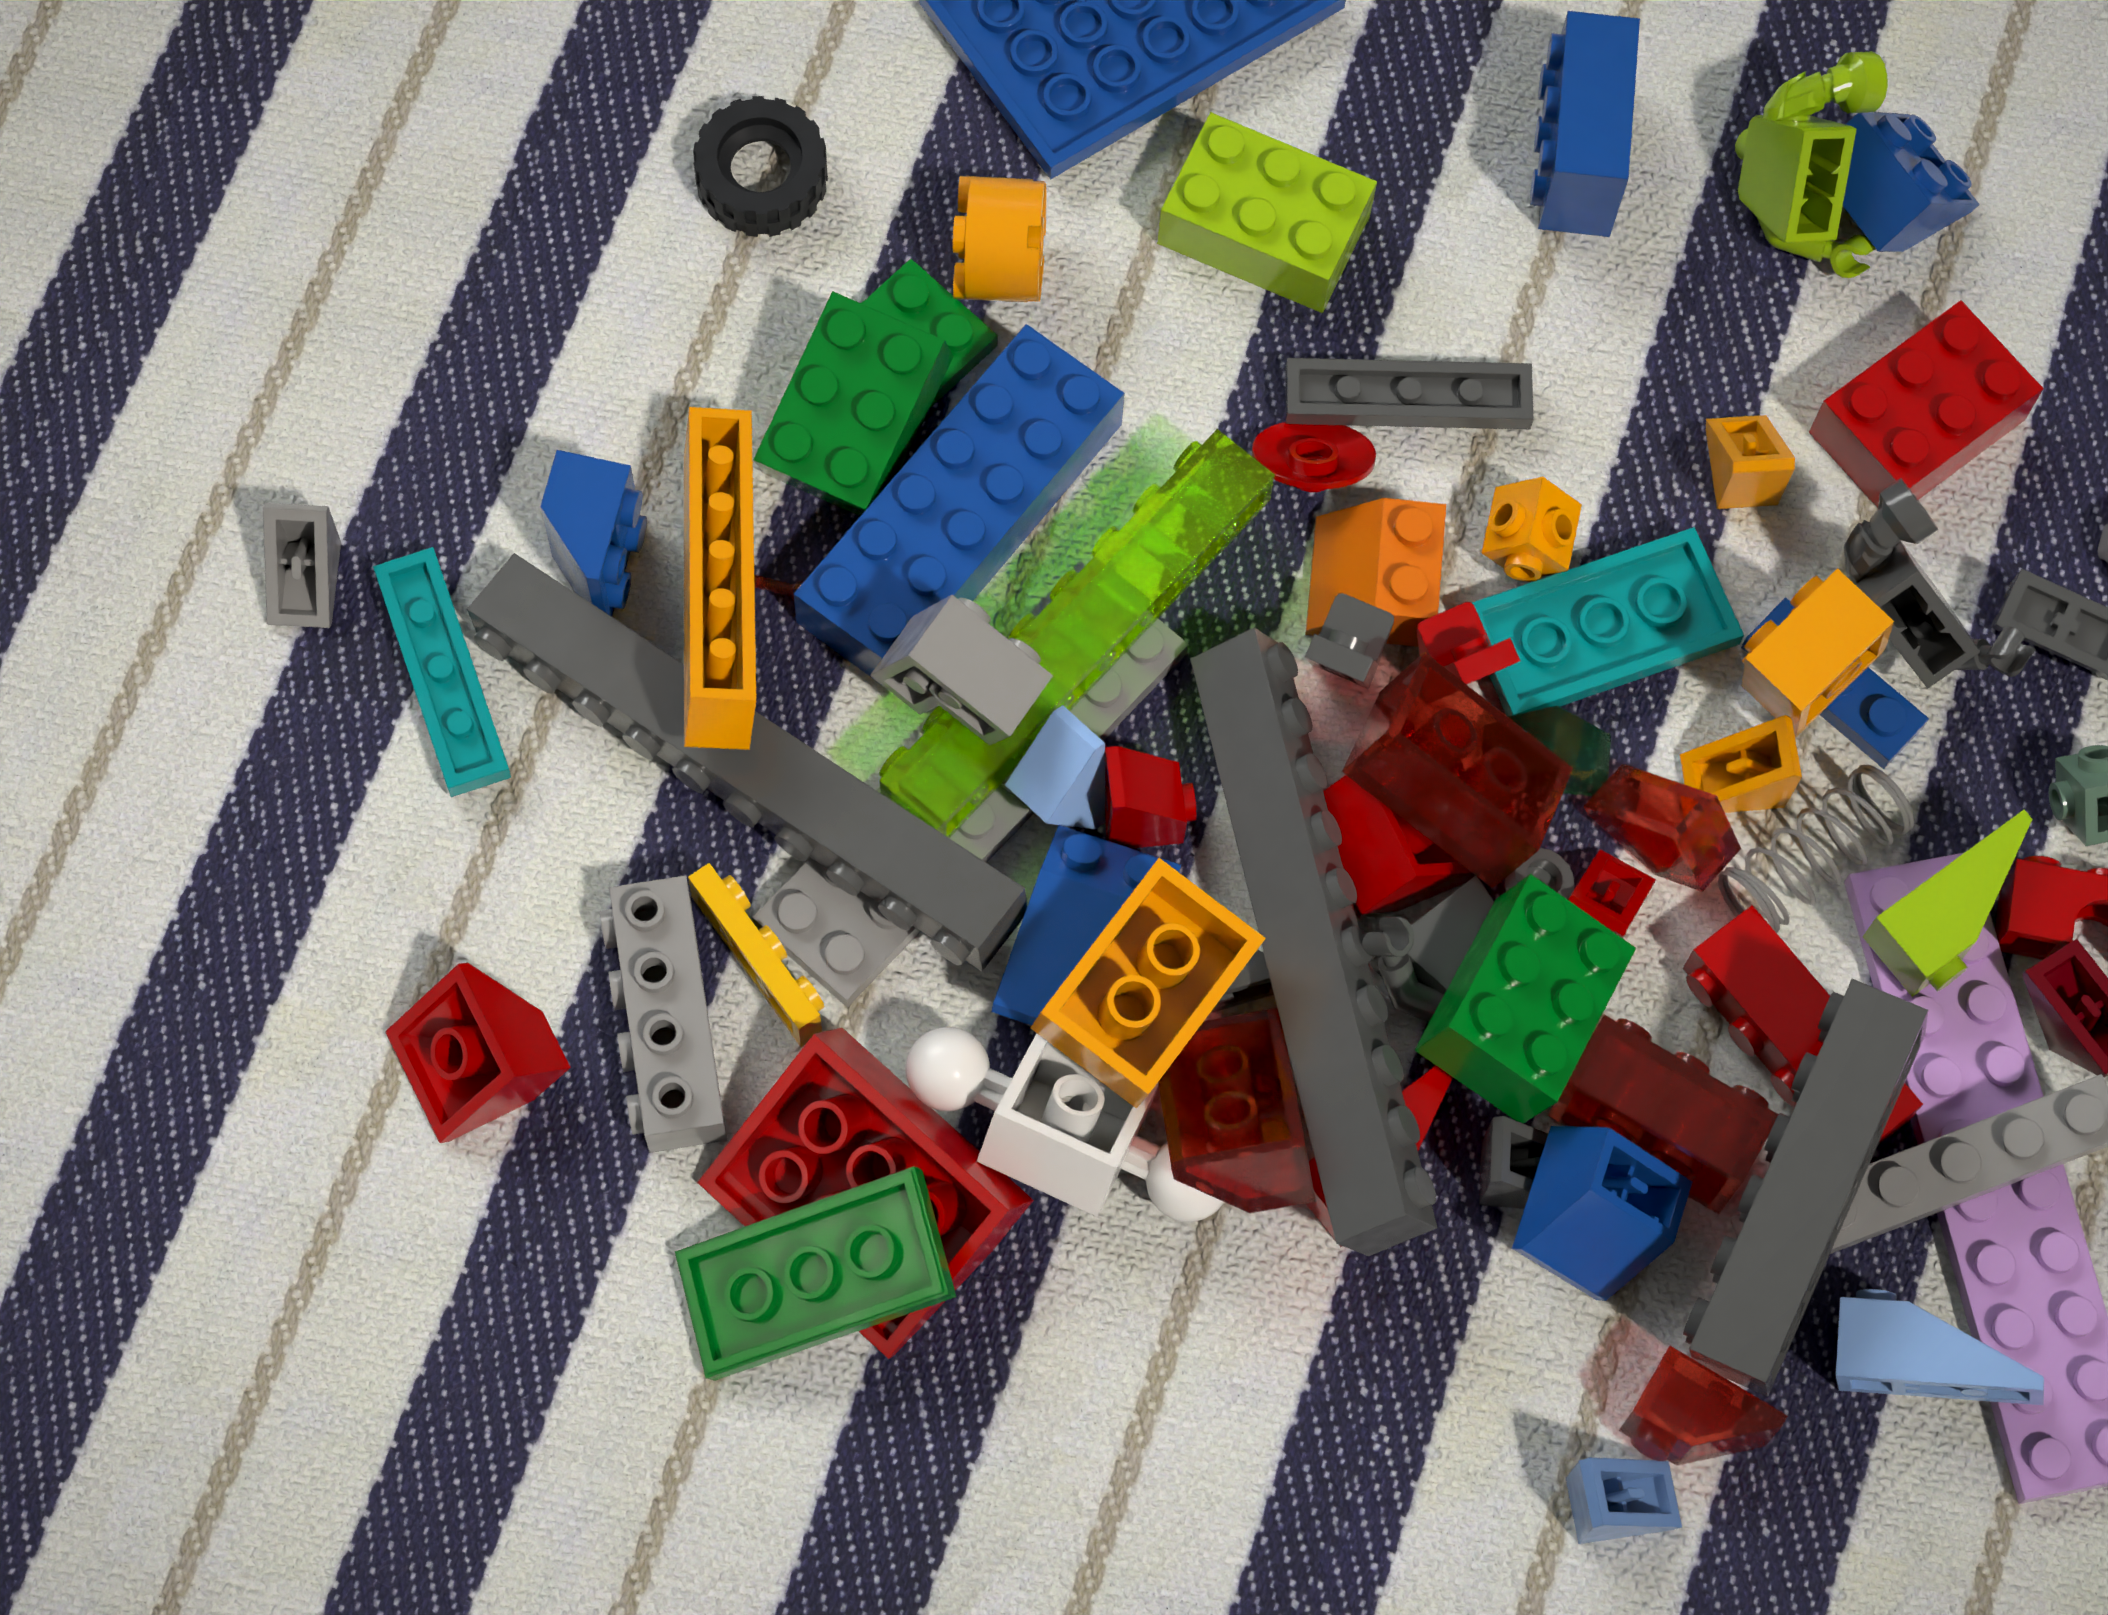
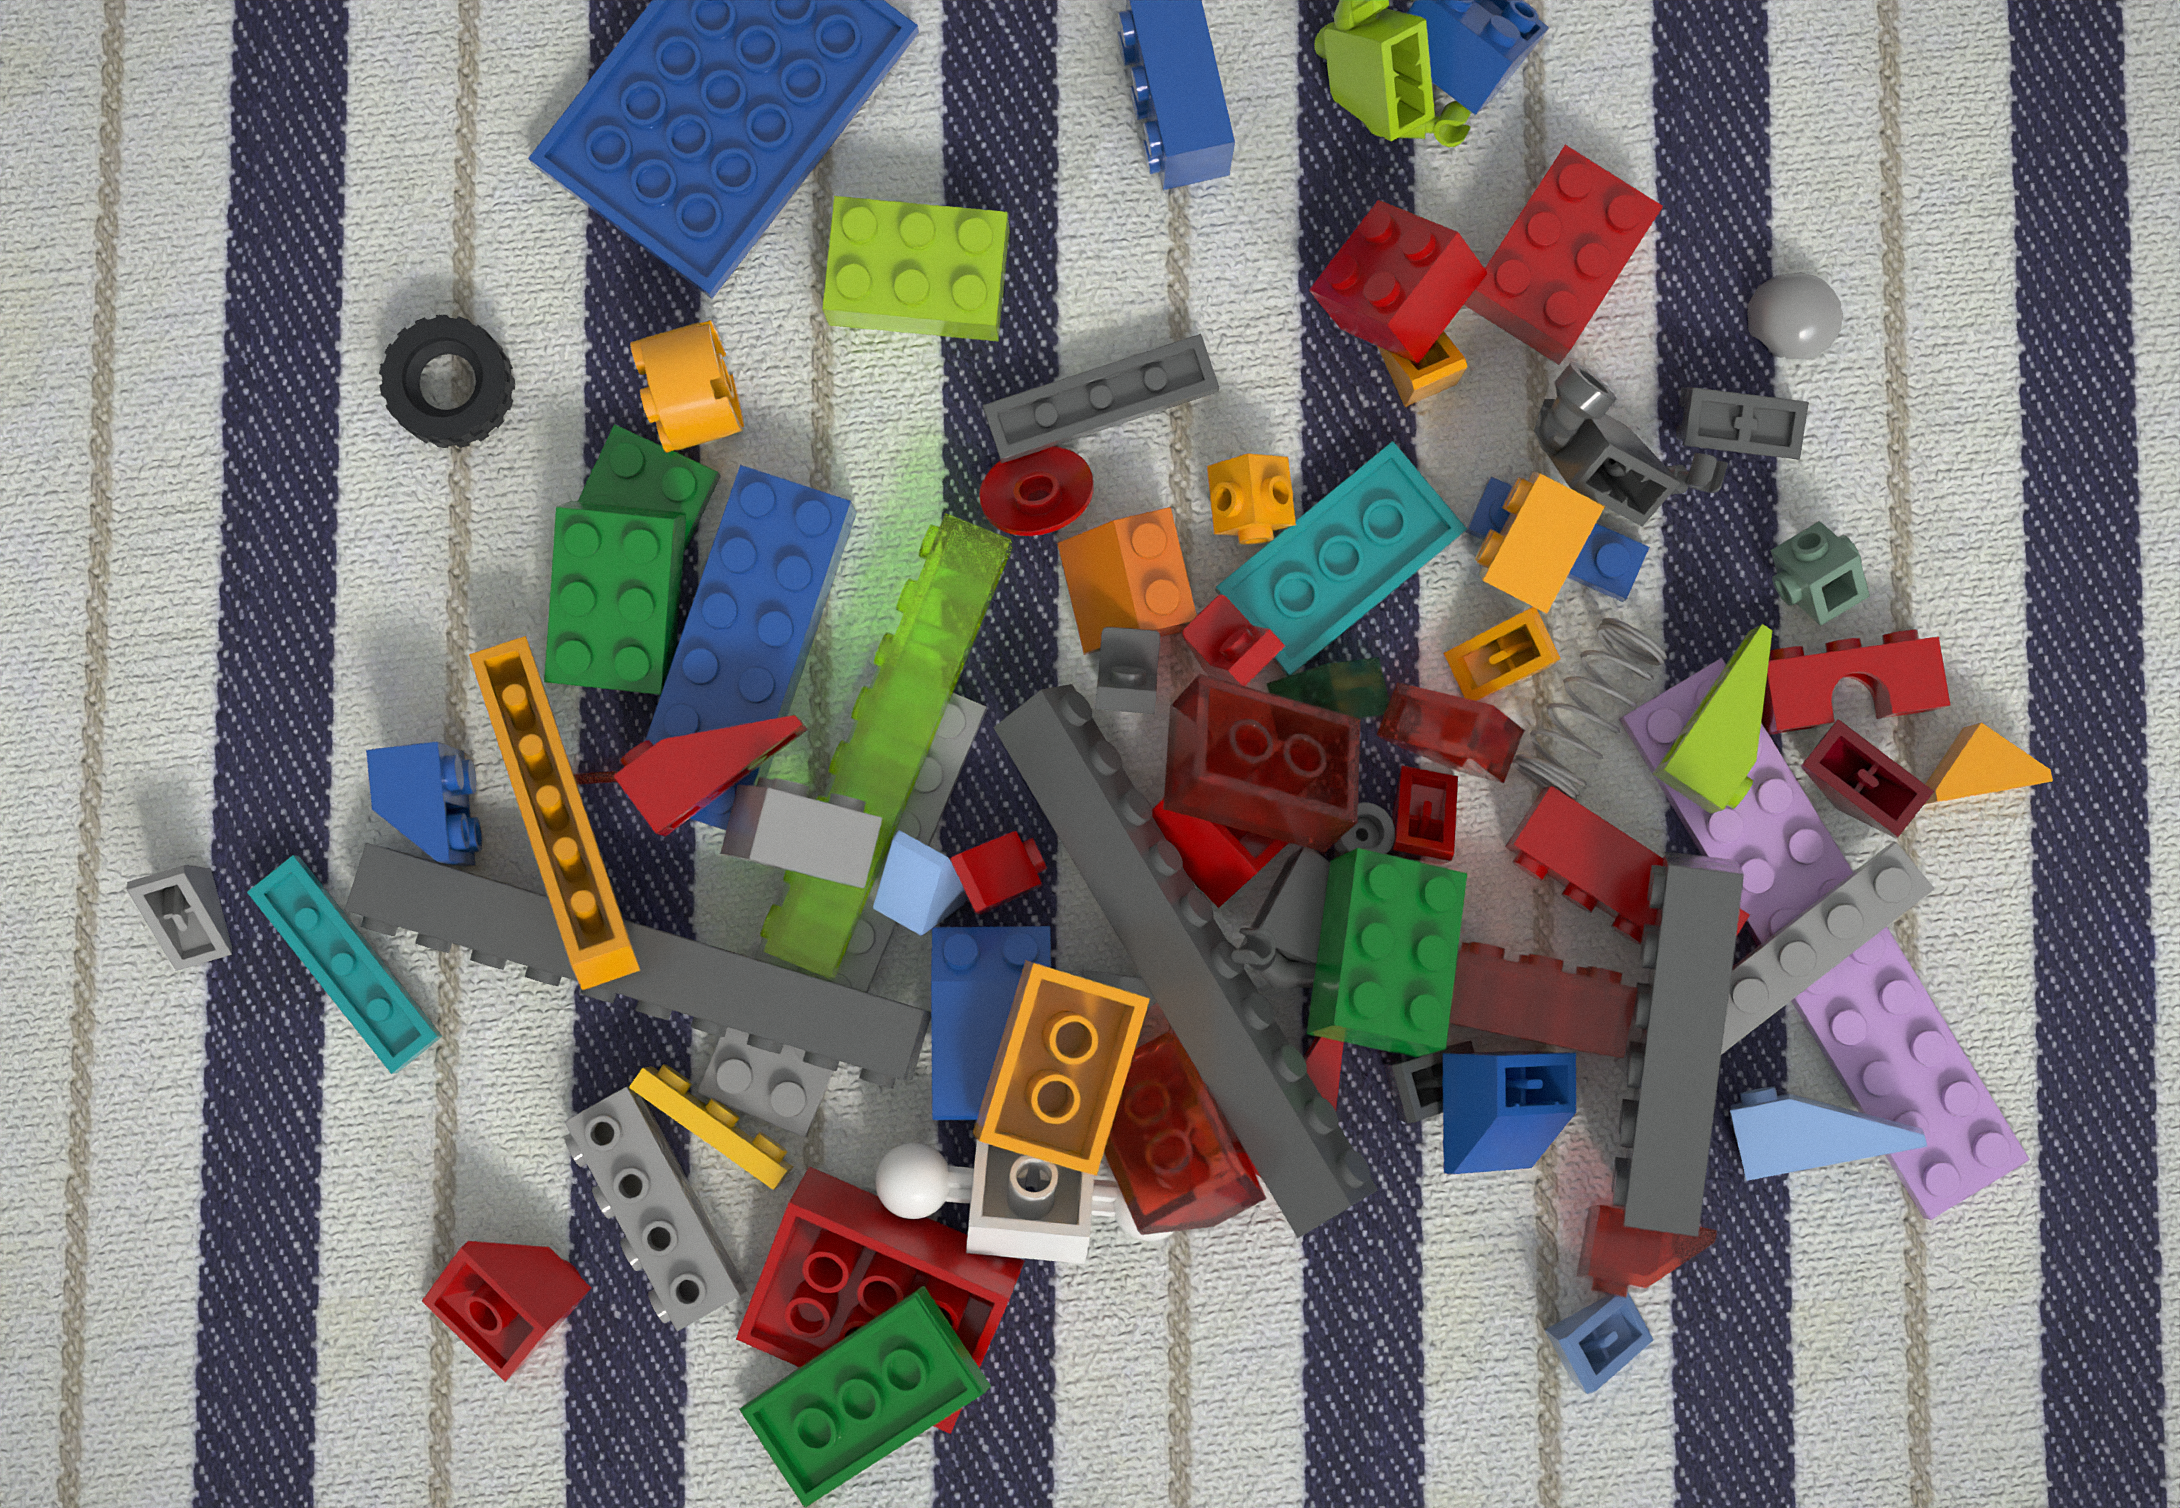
camera: 15 degrees left, 15 degrees up
(882, 577) = (690, 771): none -> red slope
(1749, 371) = (1398, 281): none -> red brick

